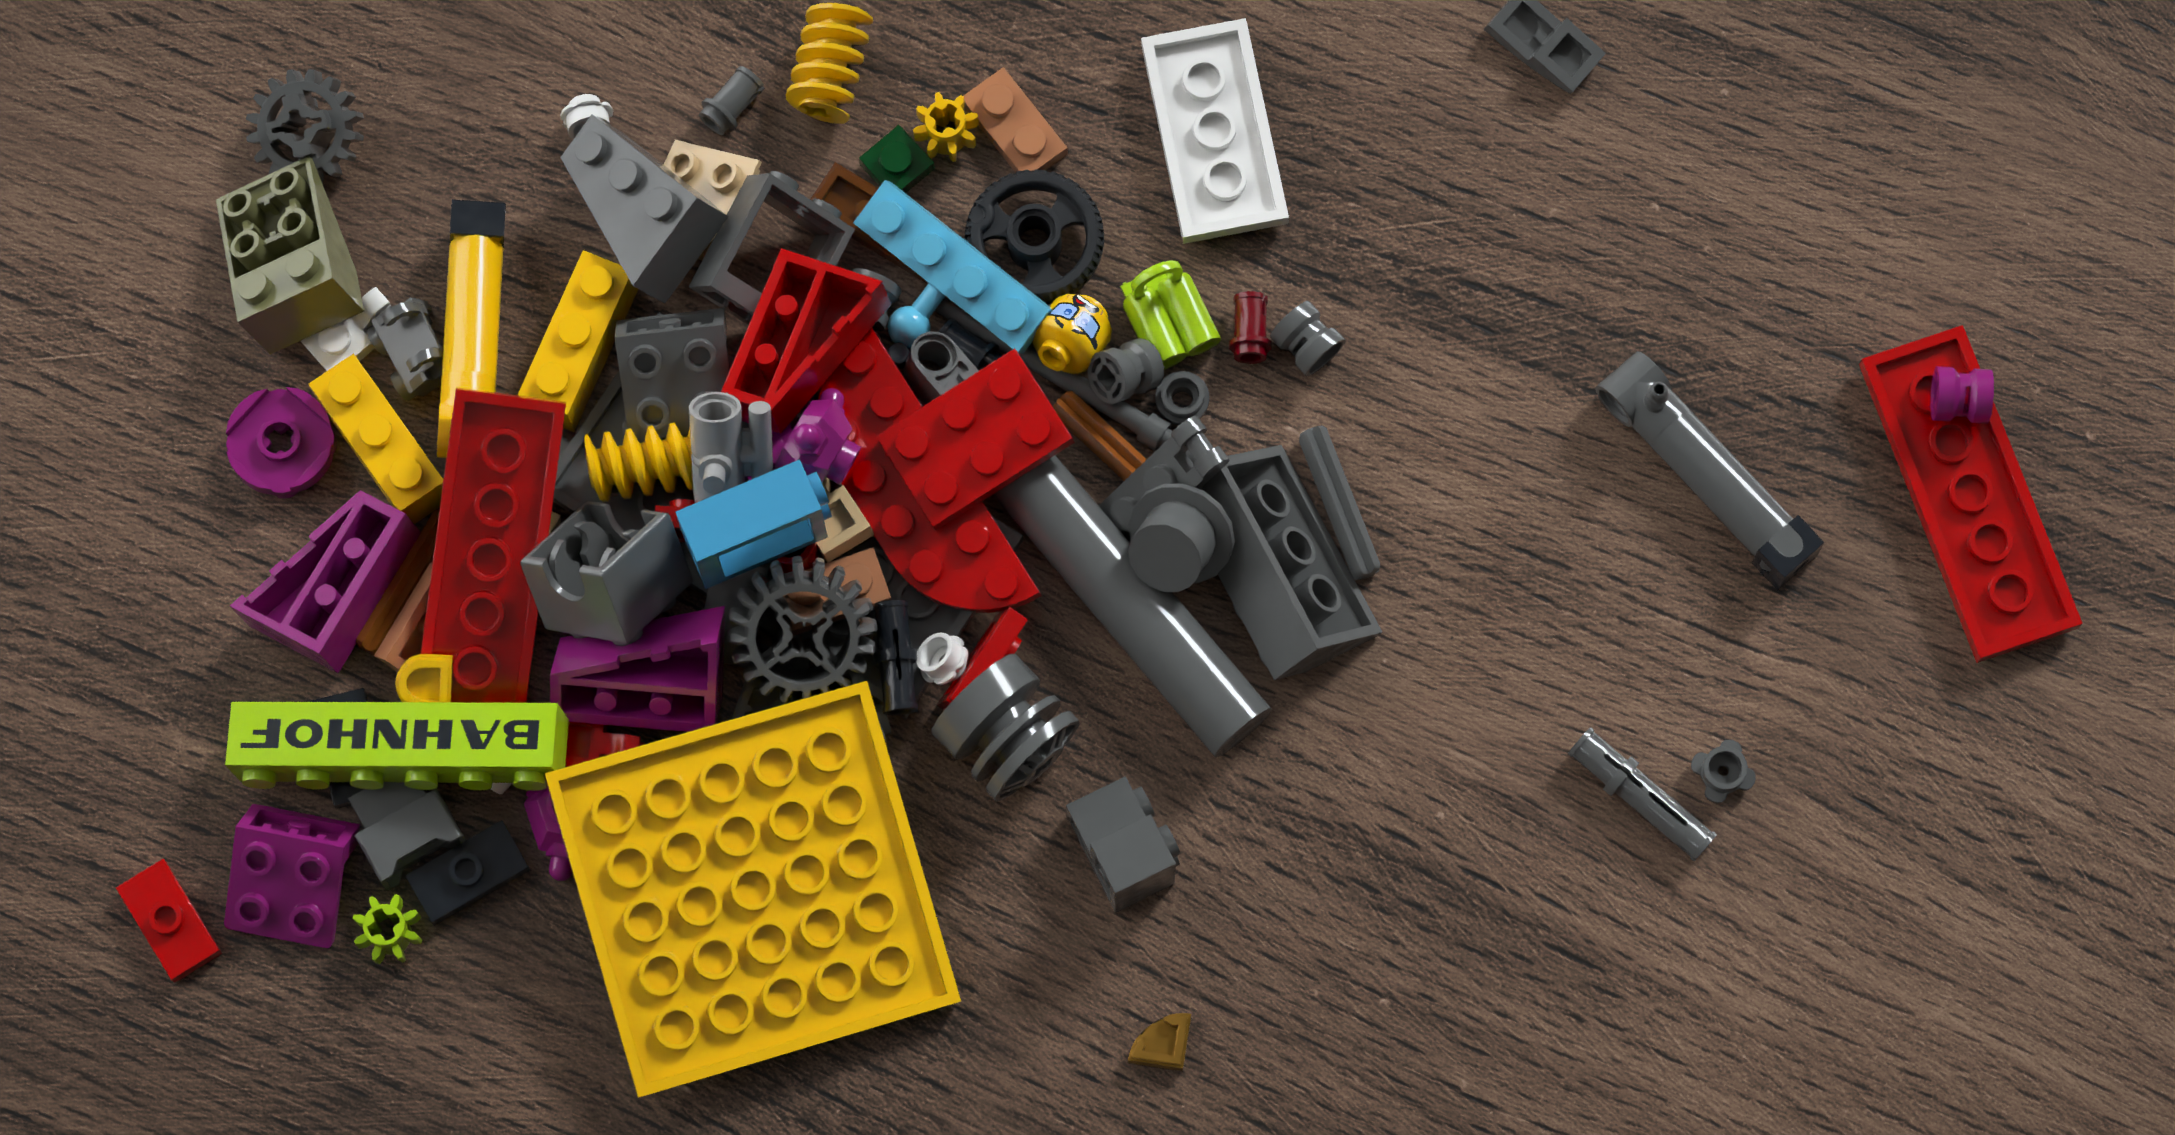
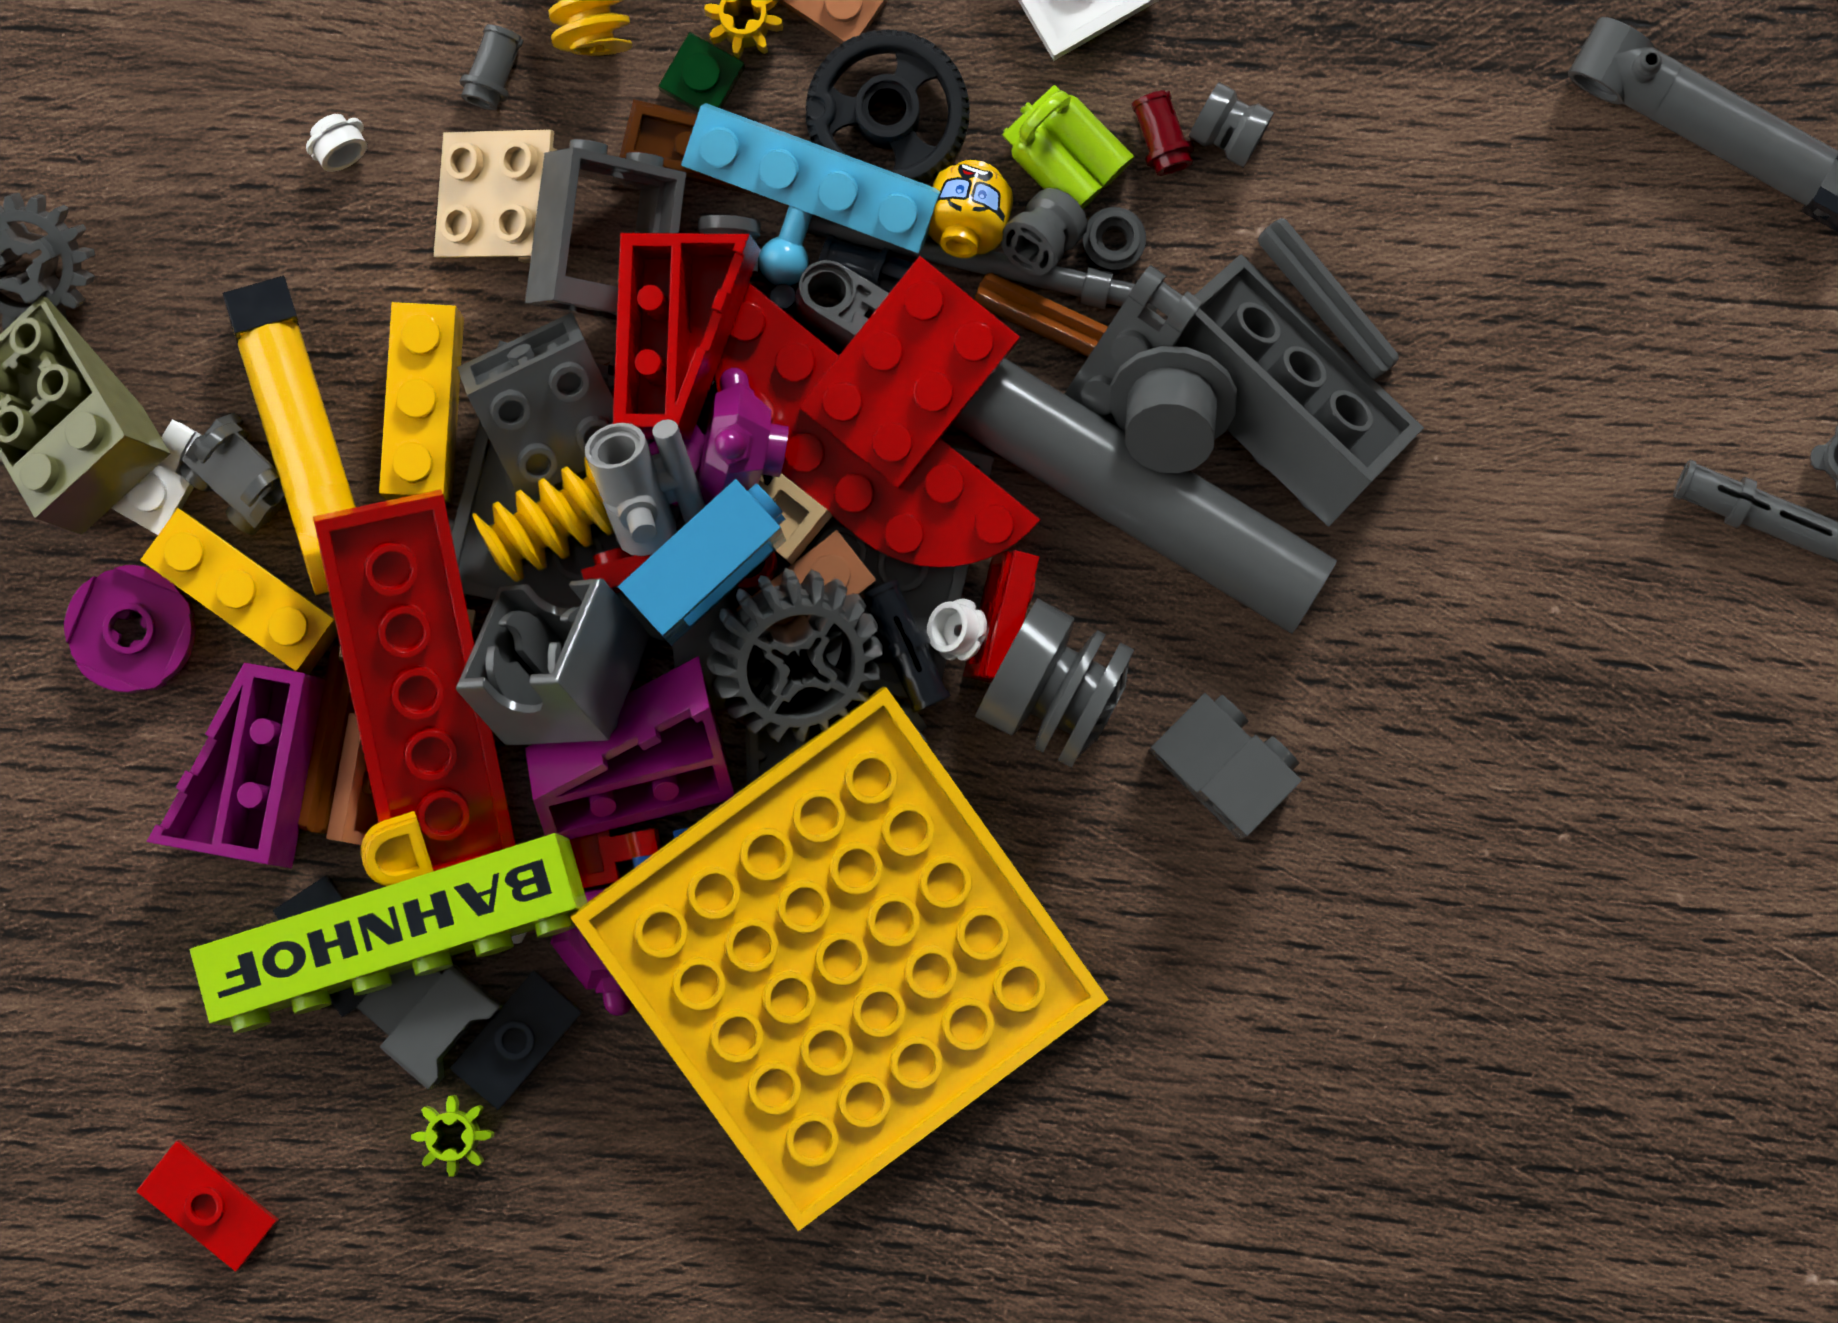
camera: 15 degrees left, 10 degrees up
(288, 875) = (320, 1109): magenta bracket -> none
(642, 207) = (438, 228): wedge -> none
(1162, 1043) = (1341, 966): pearl gold tile -> none

